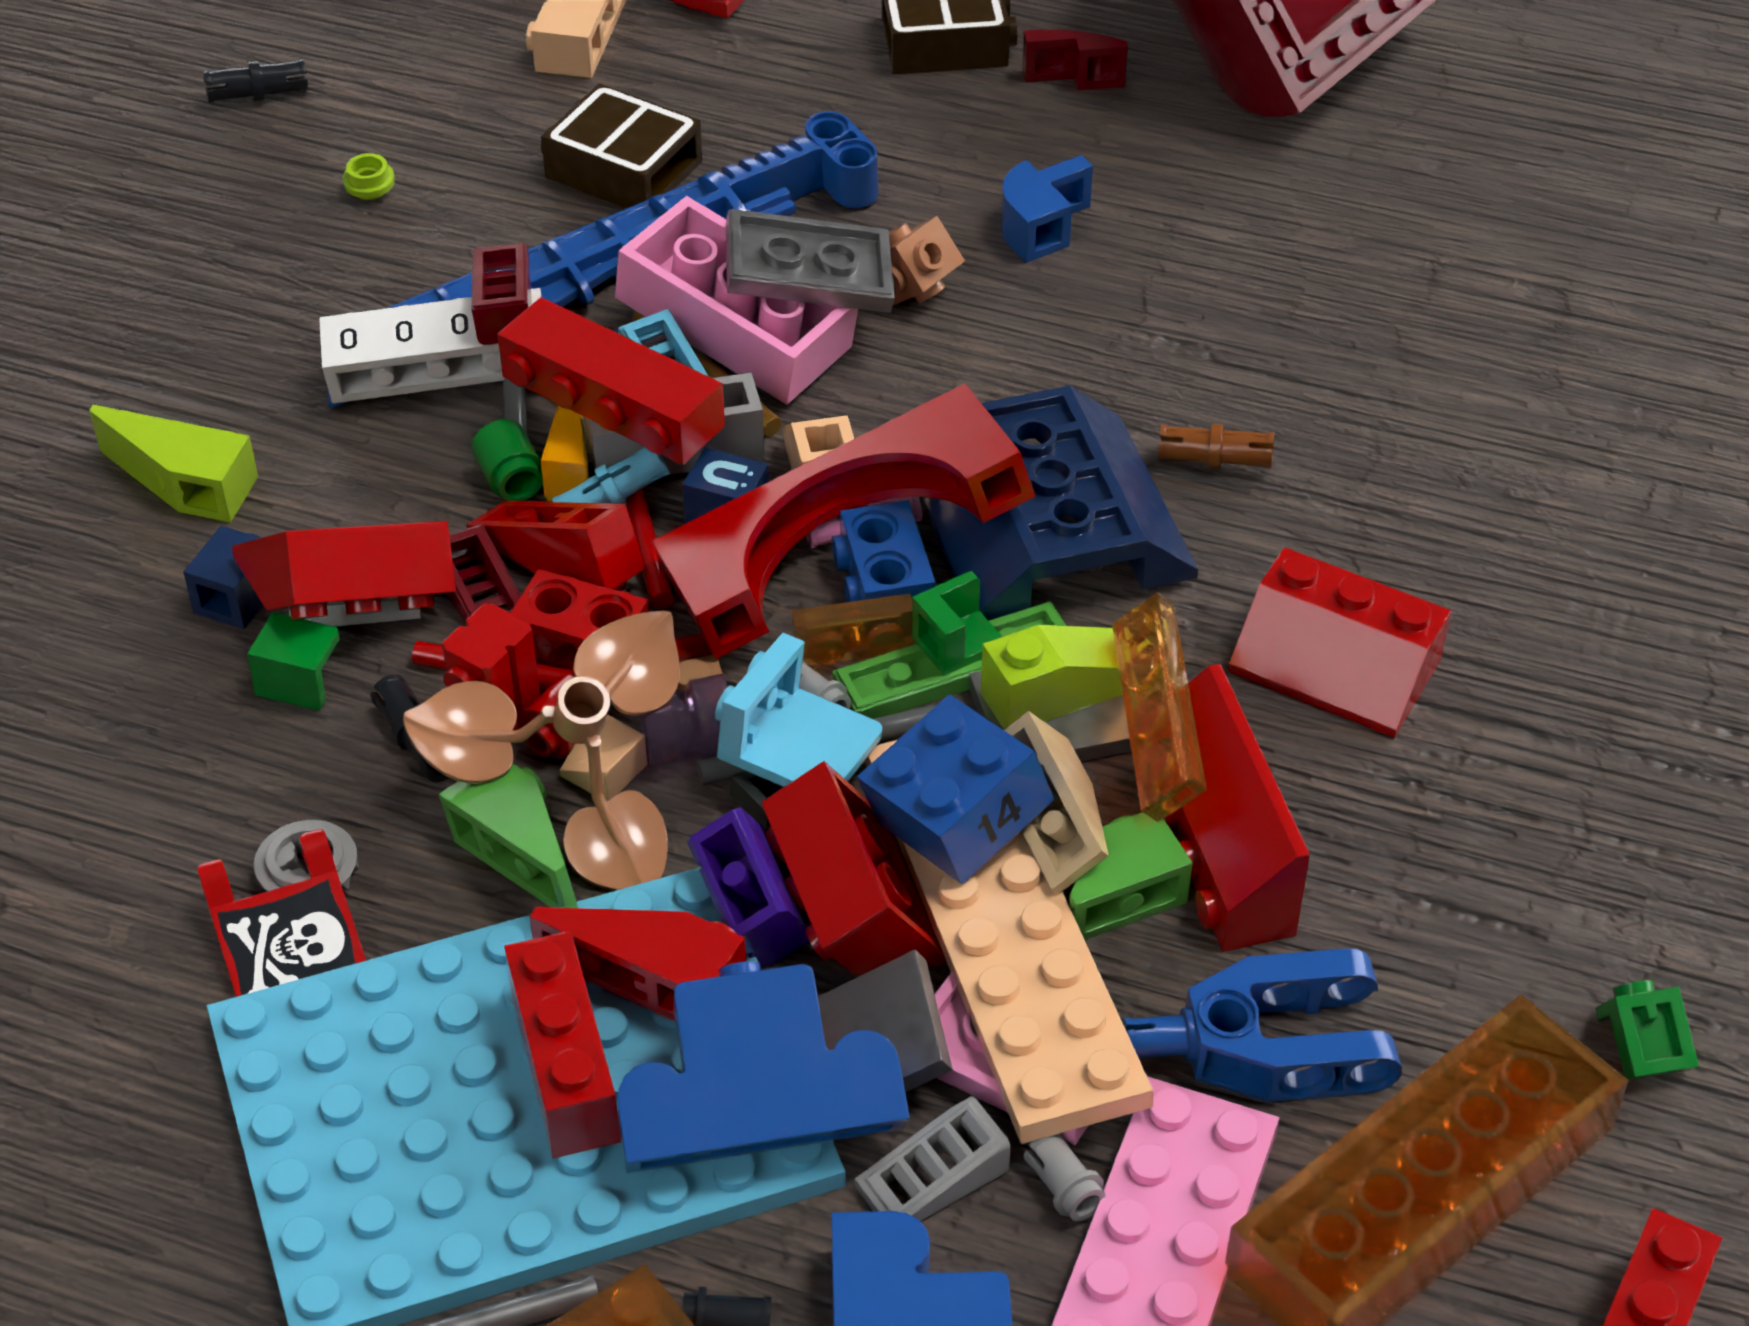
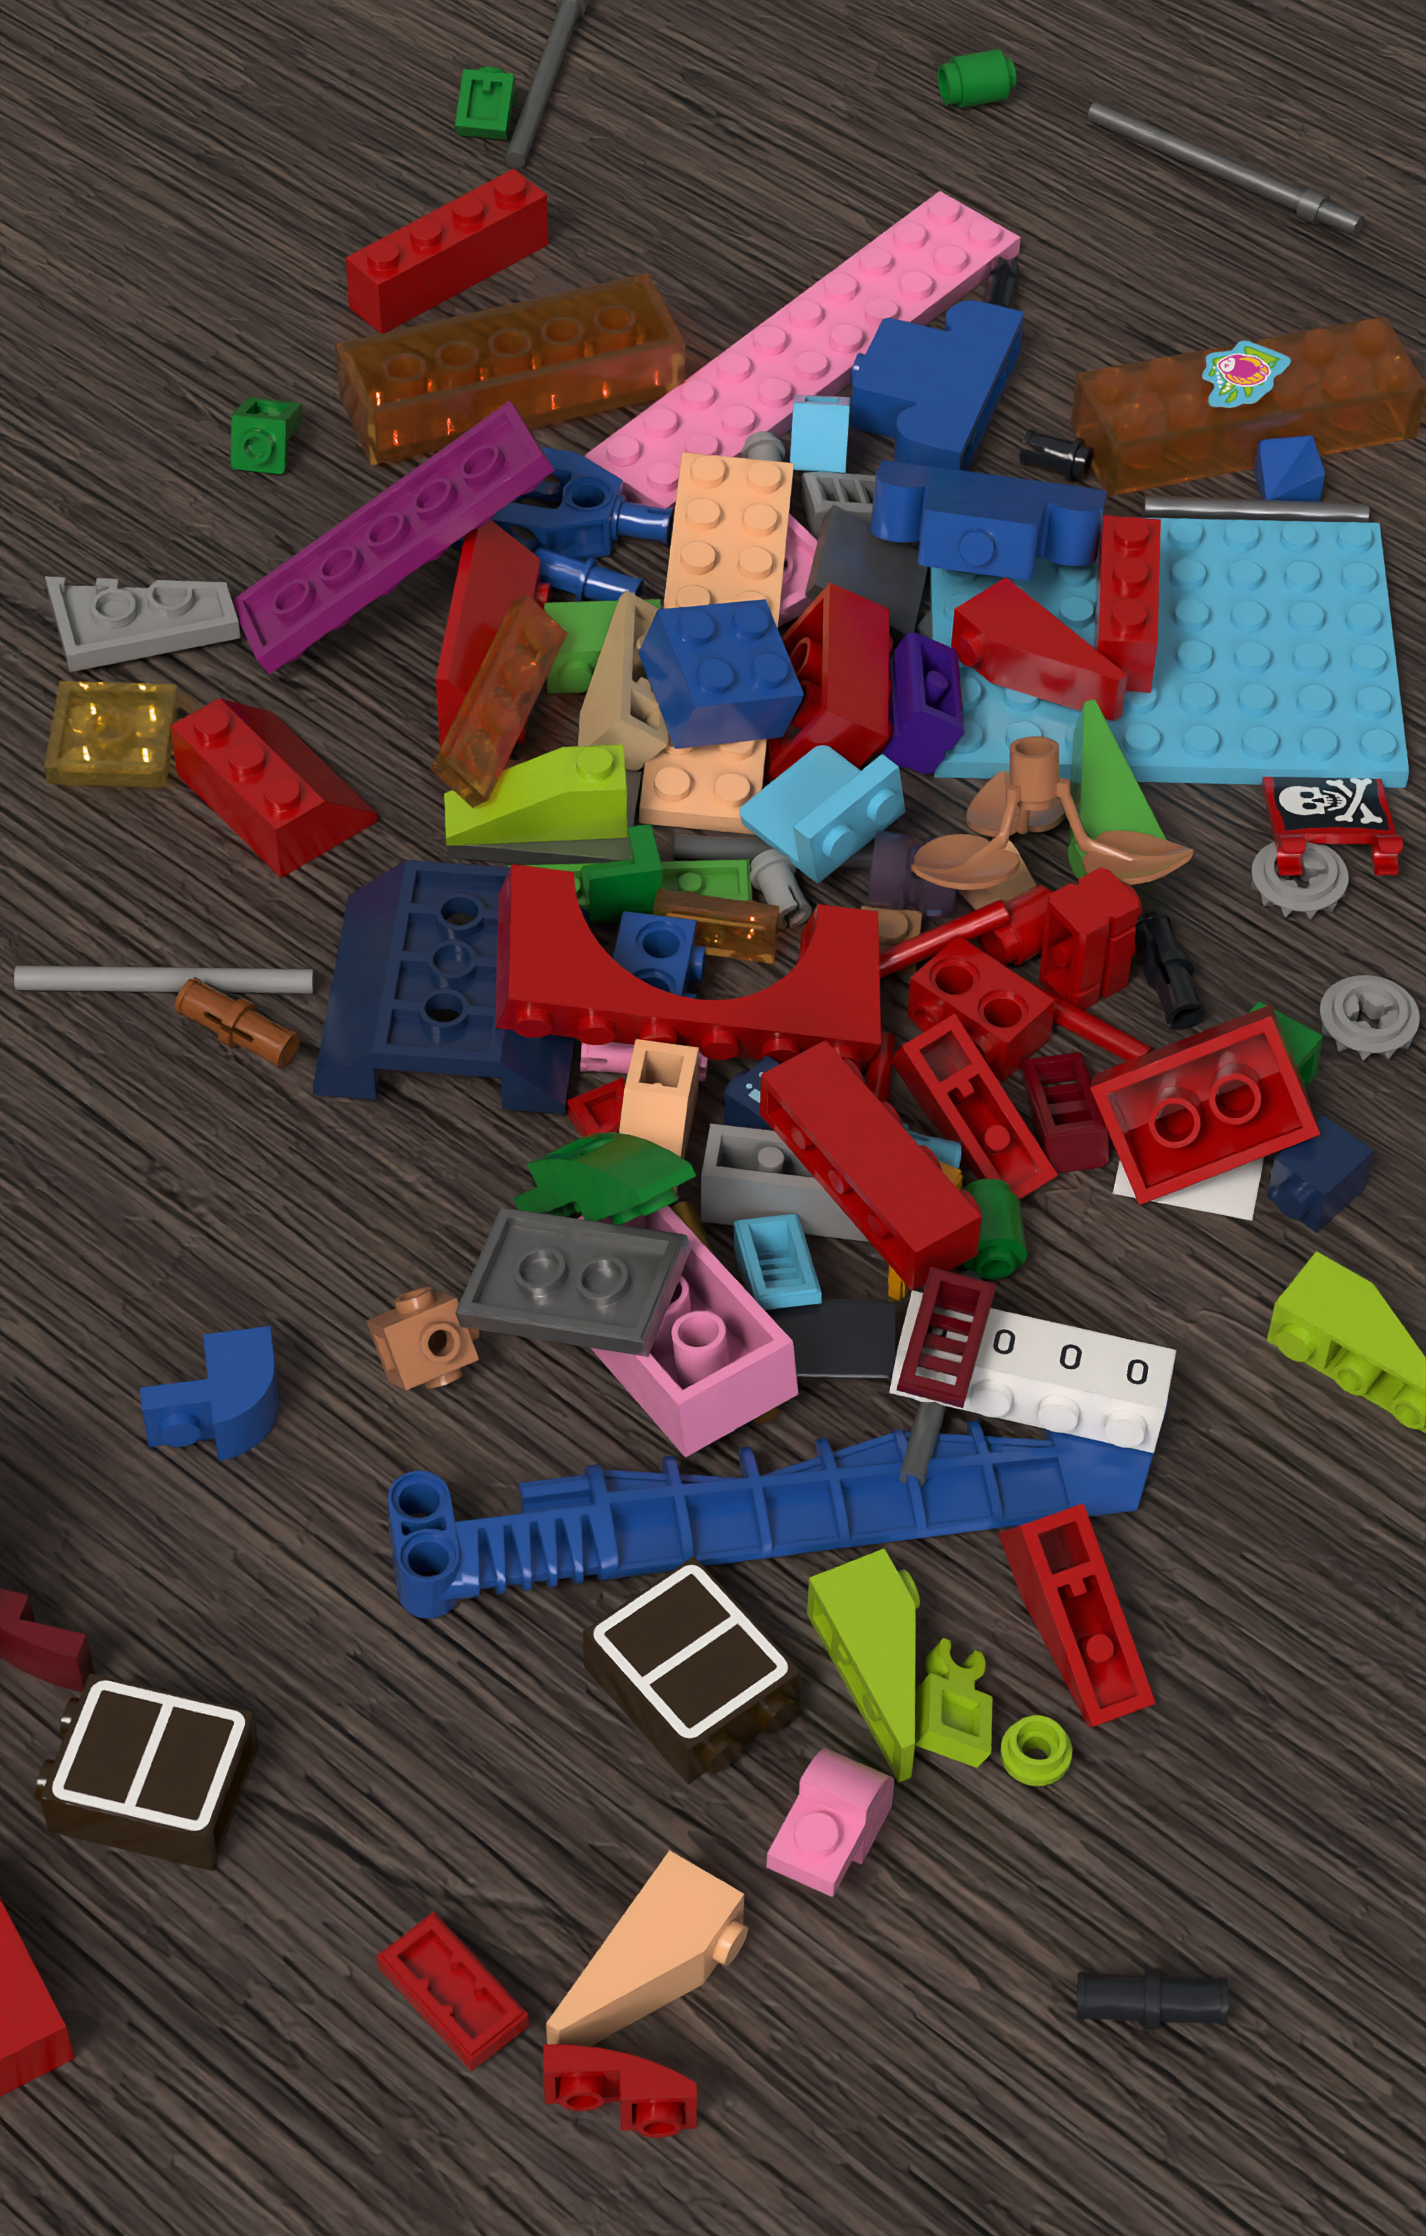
camera: 160 degrees left, 5 degrees up
(216, 721) = (1377, 999): none -> light grey gear
(369, 246) = (1078, 1613): none -> red slope
(430, 173) = (950, 1712): none -> lime plate
(488, 92) = (831, 1821): none -> bright pink brick
(504, 192) = (869, 1631): none -> lime slope
(824, 312) = (605, 1178): none -> green slope
(1016, 1209) = (820, 433): none -> medium azure brick
(1180, 956) = (585, 578): none -> blue axle
(1304, 474) = (163, 979): none -> light grey axle
(1370, 827) = (391, 537): none -> magenta plate
(1521, 649) = (111, 734): none -> clear yellow plate
(1596, 768) = (129, 623): none -> light grey wing

